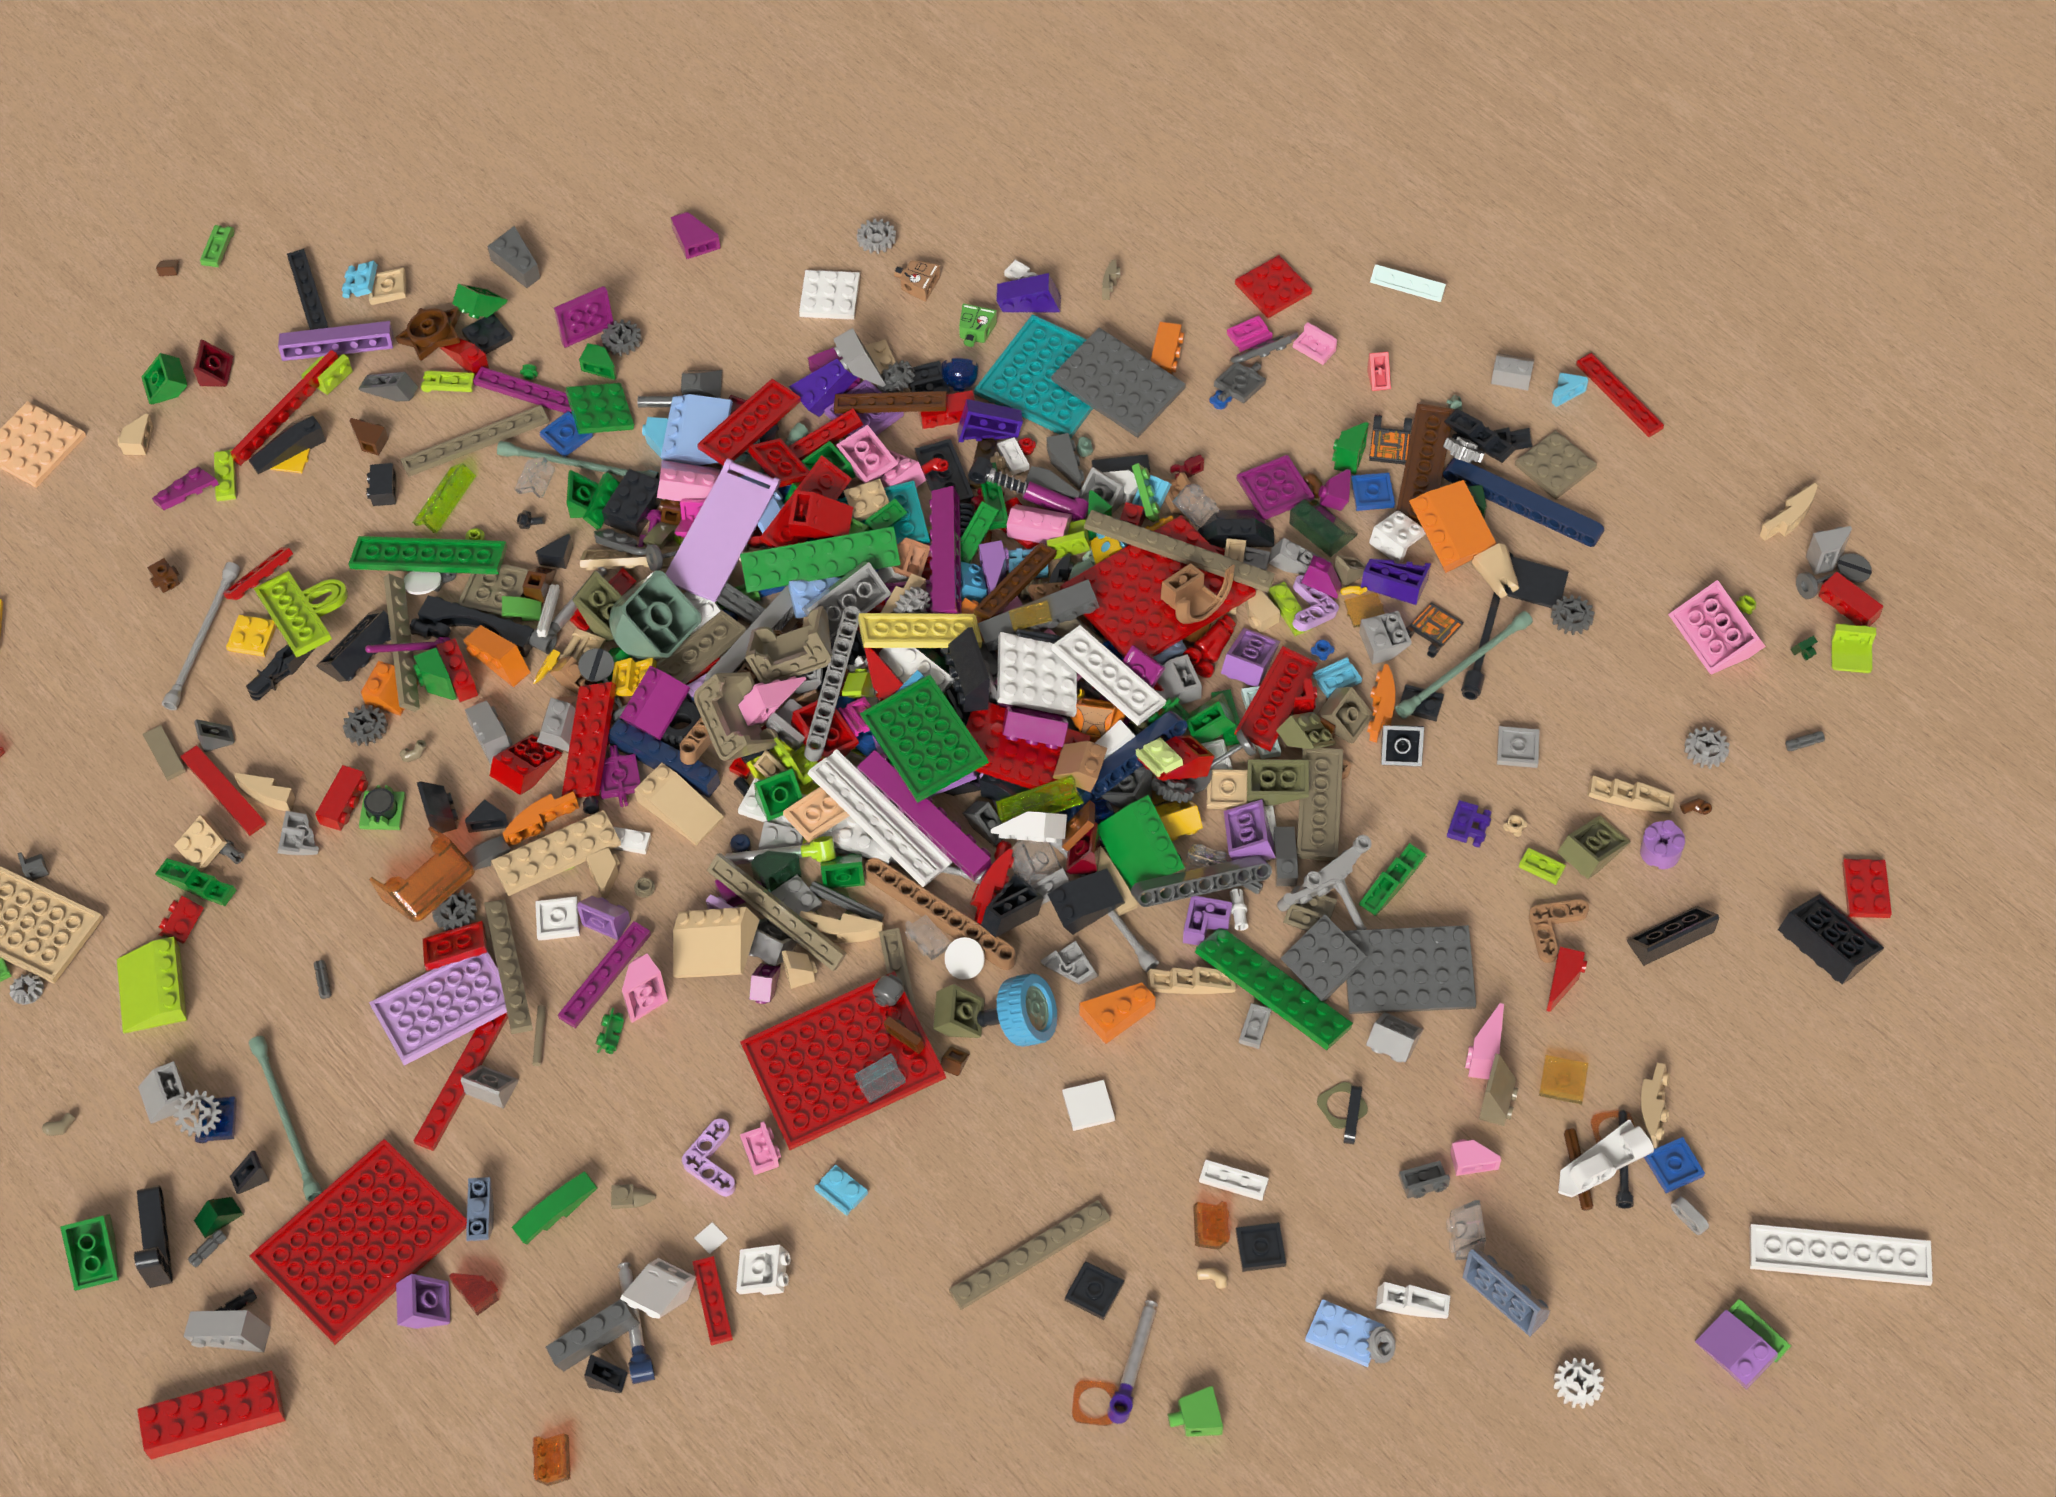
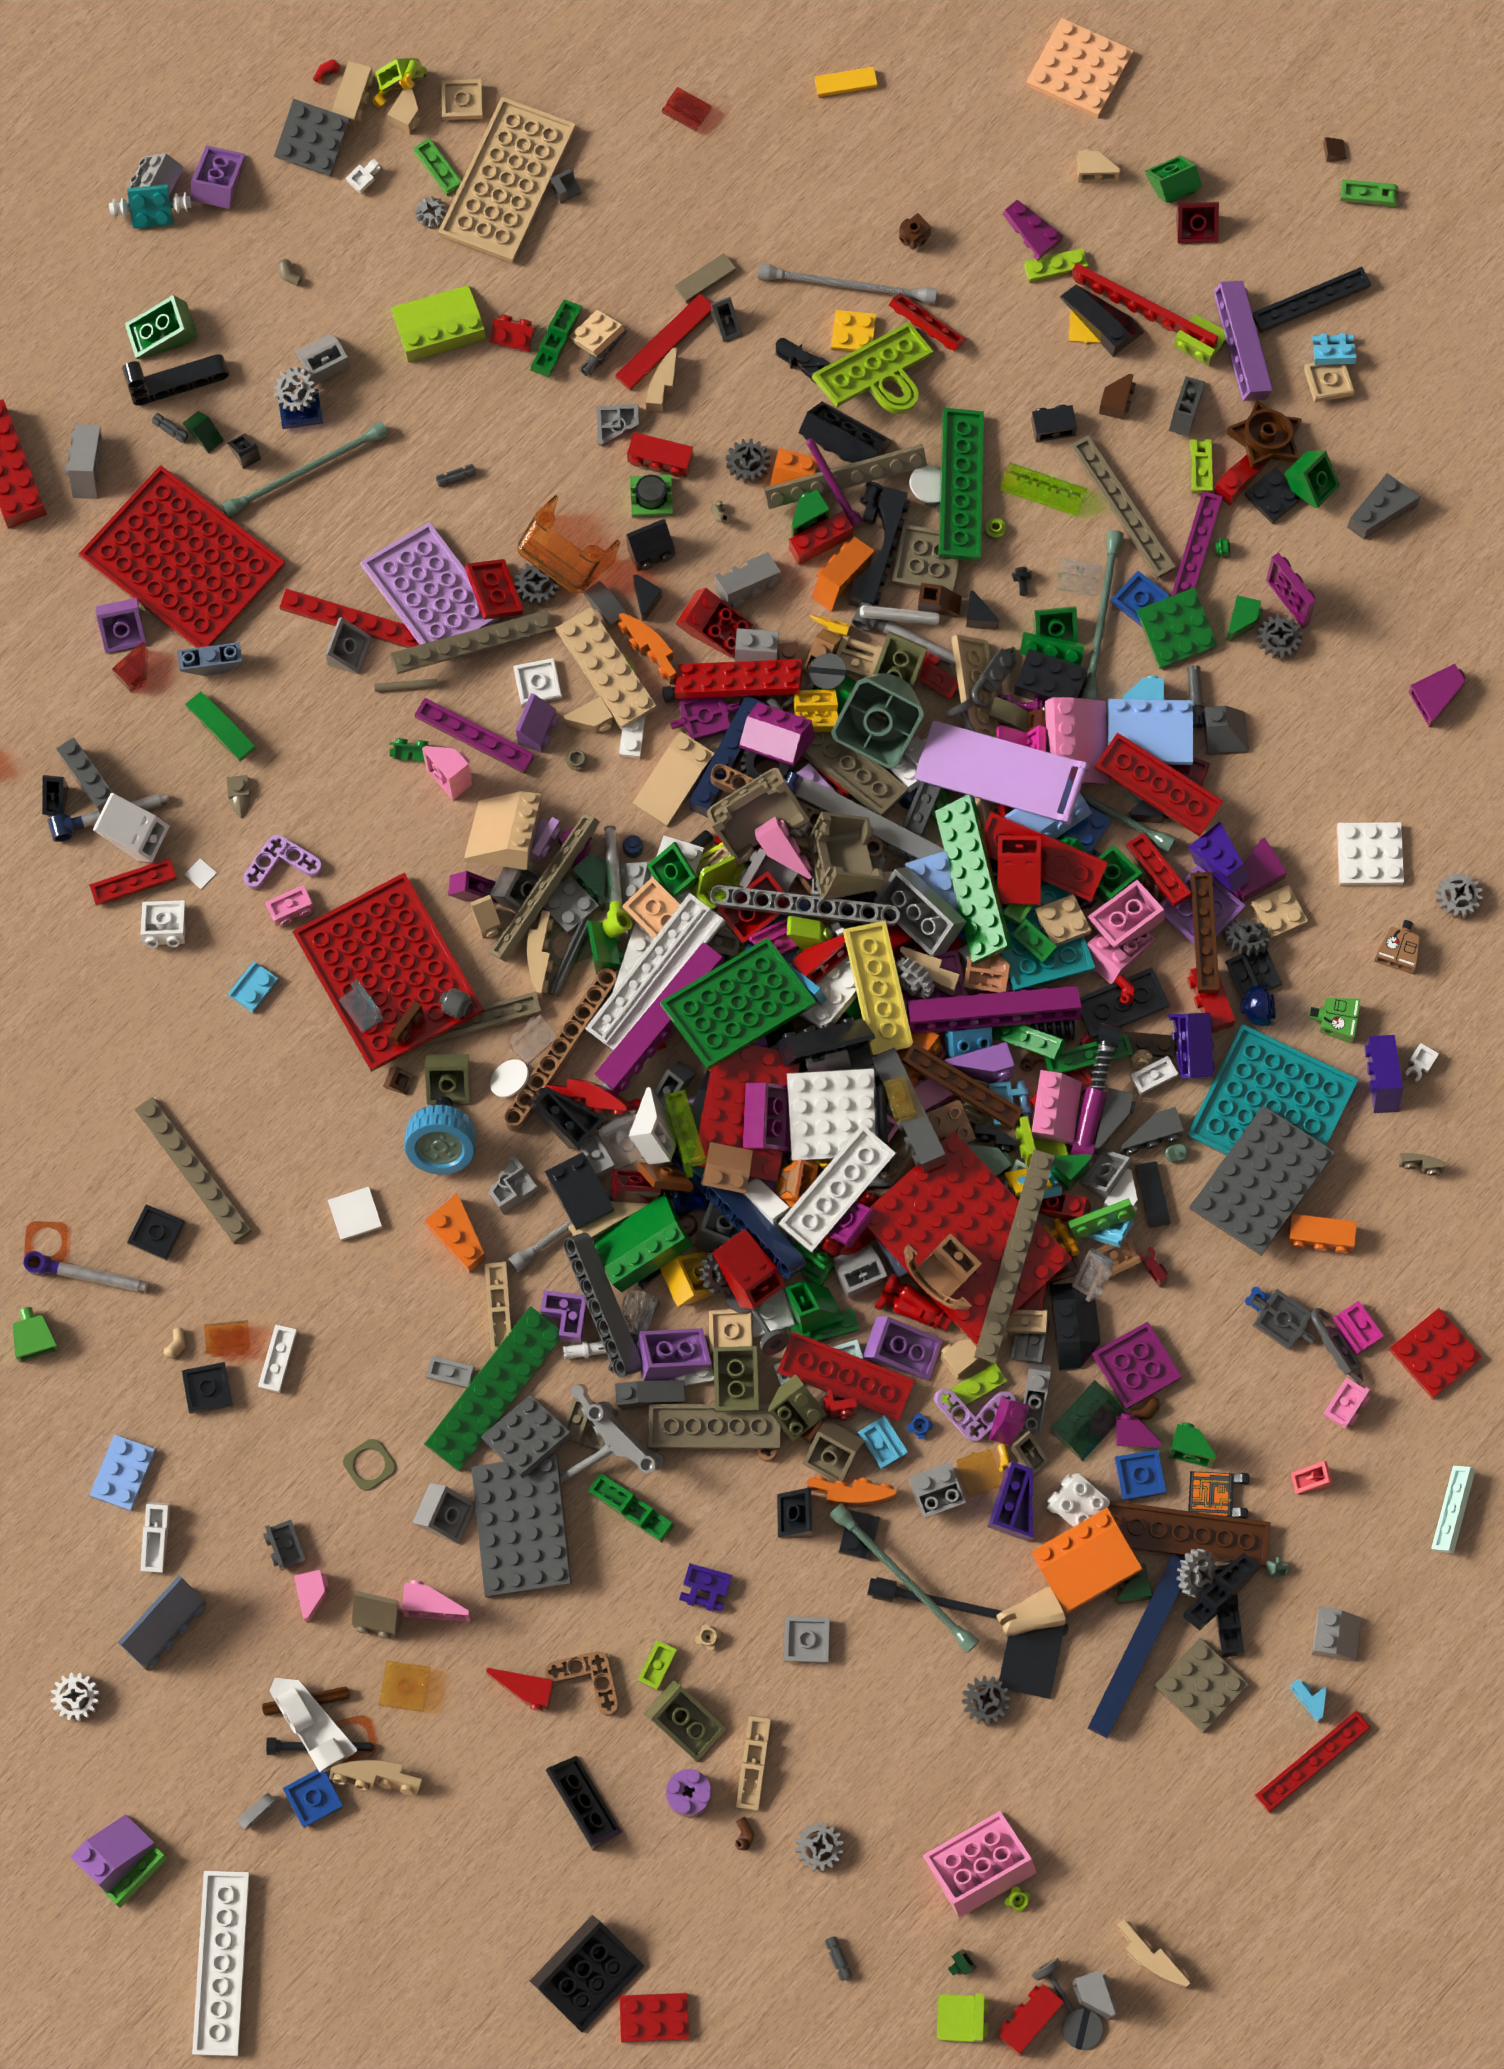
camera: 85 degrees right, 15 degrees up
(239, 1301) = (115, 463): black axle -> none
(521, 607) = (904, 588): bright green slope -> none
(779, 461) = (1106, 822): red plate -> none
(857, 357) = (1249, 889): light grey slope -> none
(1027, 445) = (1169, 1093): red plate -> none
(1159, 757) = (740, 1249): yellowish green plate -> none
(1352, 1115) = (352, 1472): black beam -> none
(1386, 1351) = (105, 1512): light grey gear -> none
(1435, 626) = (962, 1548): flag -> none
(1466, 1230) = (226, 1586): clear slope -> none

